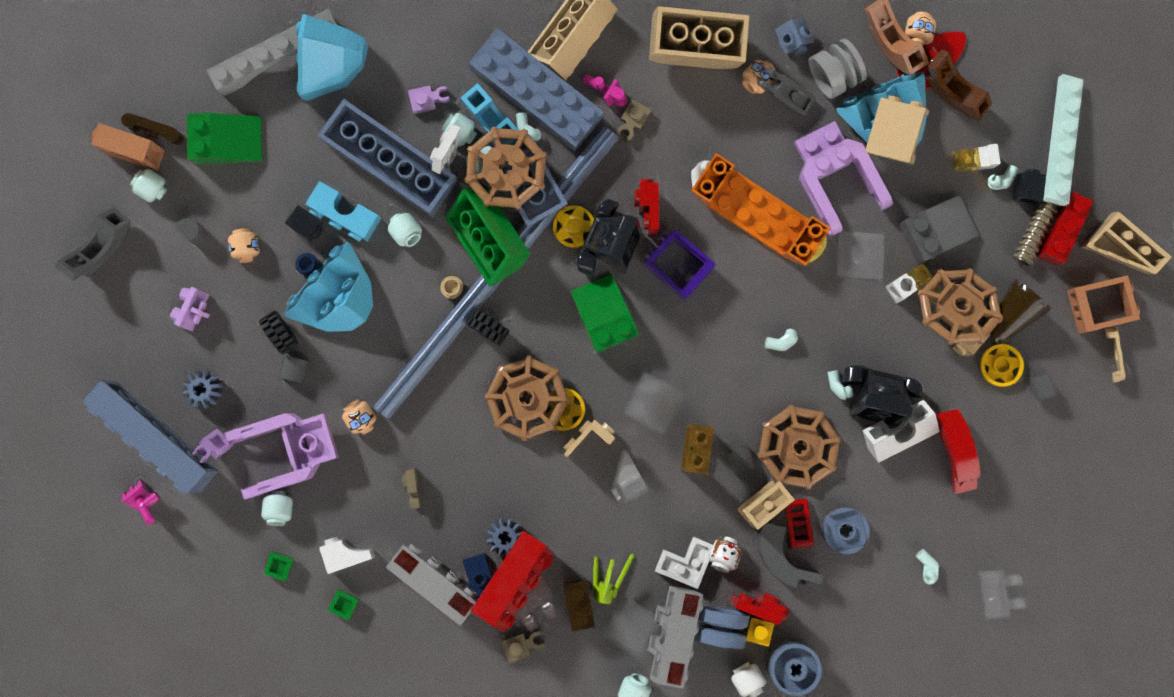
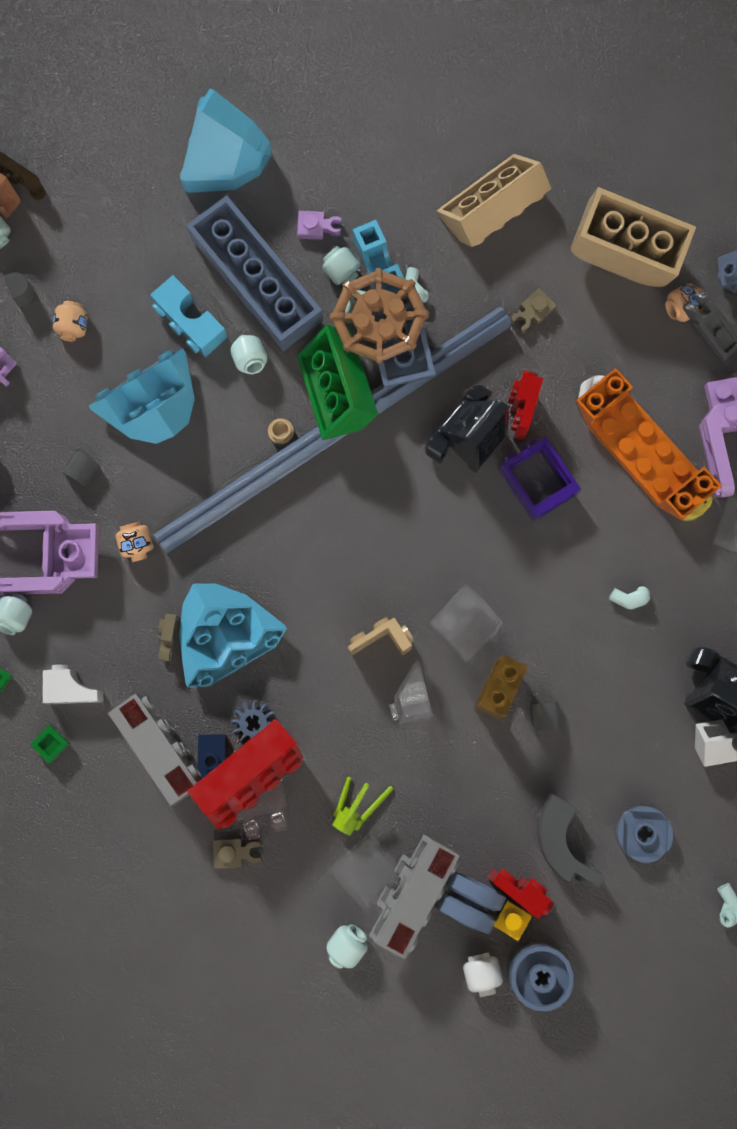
camera: 20 degrees right, 5 degrees down
(223, 138) = (86, 204): green slope -> none
(243, 67) = (126, 137): light grey arch -> none
(278, 332) = (76, 422): black tyre -> none
(305, 224) = (143, 317): black brick -> none
(306, 264) = (131, 360): dark blue plate -> none
(445, 154) = (321, 279): white plate -> none
(456, 471) = (223, 633): none -> medium azure brick
(488, 327) = (306, 484): black tyre -> none
(536, 90) = (437, 248): sand blue brick -> none
(538, 404) = (336, 586): medium nougat plate -> none
(570, 410) = (363, 600): yellow wheel -> none
(572, 226) = (433, 404): yellow wheel -> none
(579, 604) = (314, 825): dark brown brick -> none
(604, 313) = (440, 509): green slope -> none
(613, 94) = (519, 277): dark pink arm -> none
(687, 569) = (454, 822): white plate -> none
(725, 555) = (497, 819): white head -> none
(765, 504) = (561, 773): tan panel -> none
(788, 454) = (602, 727): medium nougat plate -> none
(807, 523) = (589, 834): red slope -> none
(836, 386) = (679, 668): light aqua arm -> none

